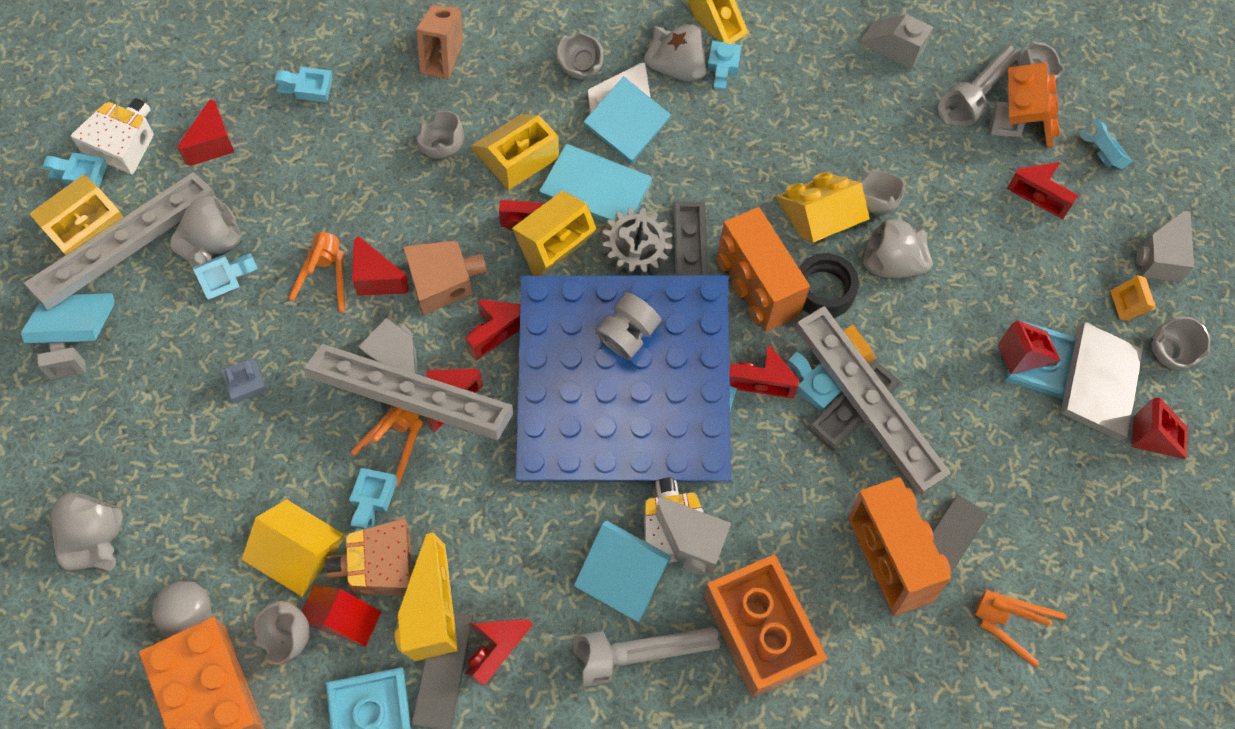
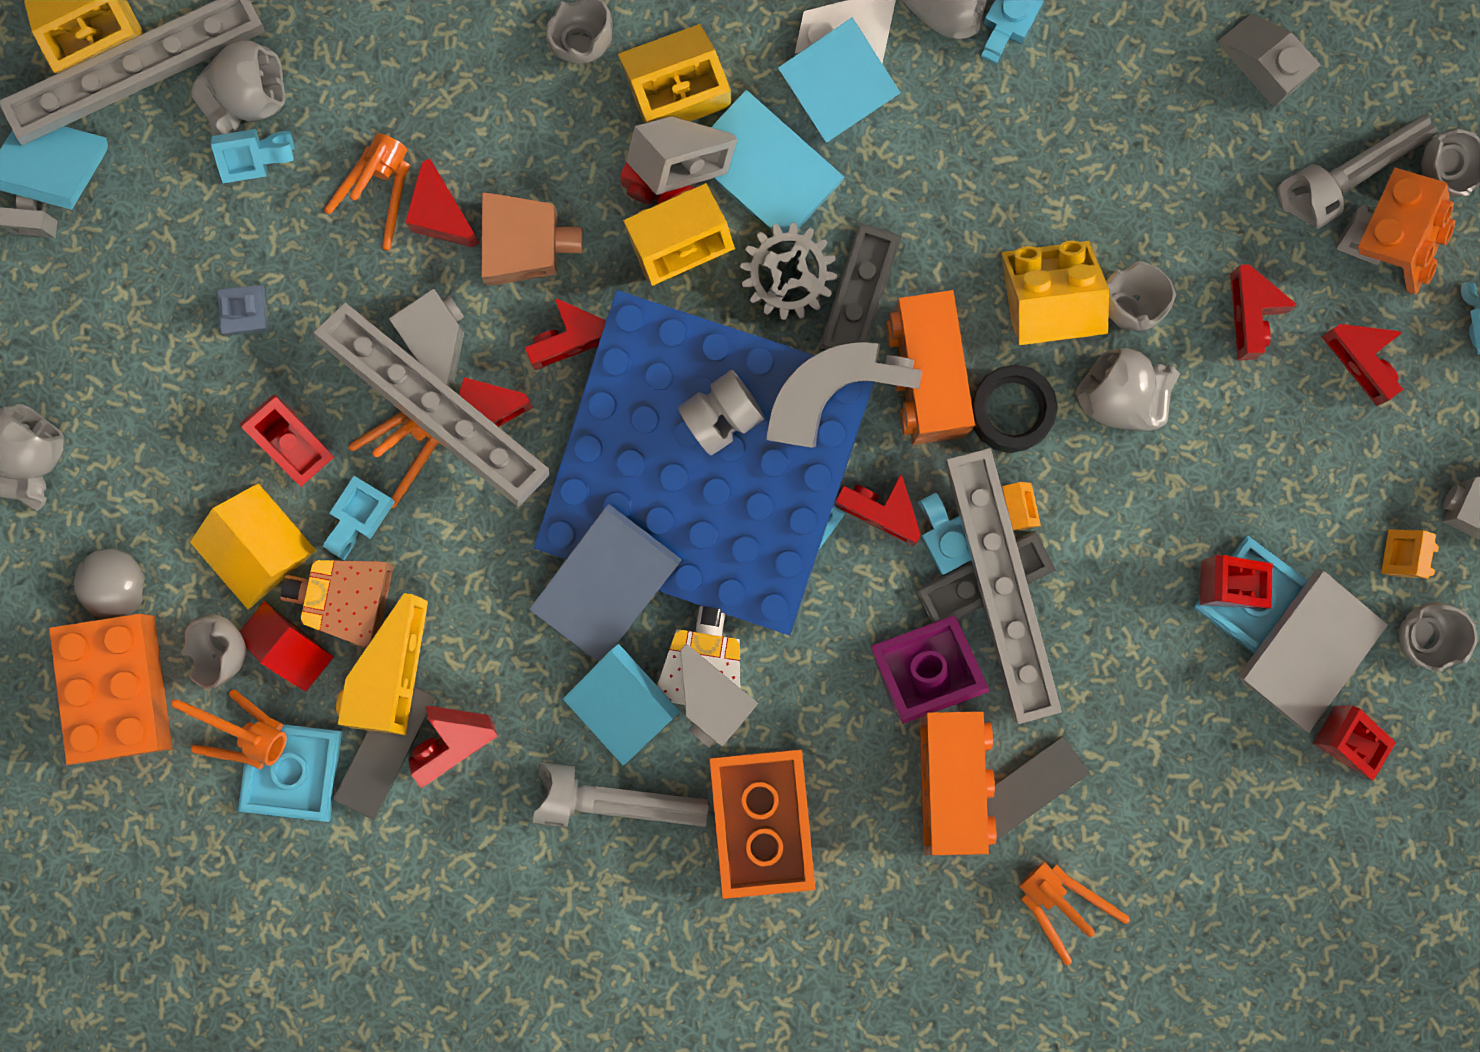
camera: 20 degrees right, 20 degrees up
(301, 454) = (286, 439): none -> slope
(339, 691) = (260, 742): none -> orange plant
(534, 183) = (679, 153): none -> light grey slope
(579, 484) = (605, 583): none -> sand blue tile
(694, 277) = (804, 395): none -> light grey arch
(839, 473) = (928, 669): none -> magenta slope
(956, 178) = (1251, 299): none -> red slope

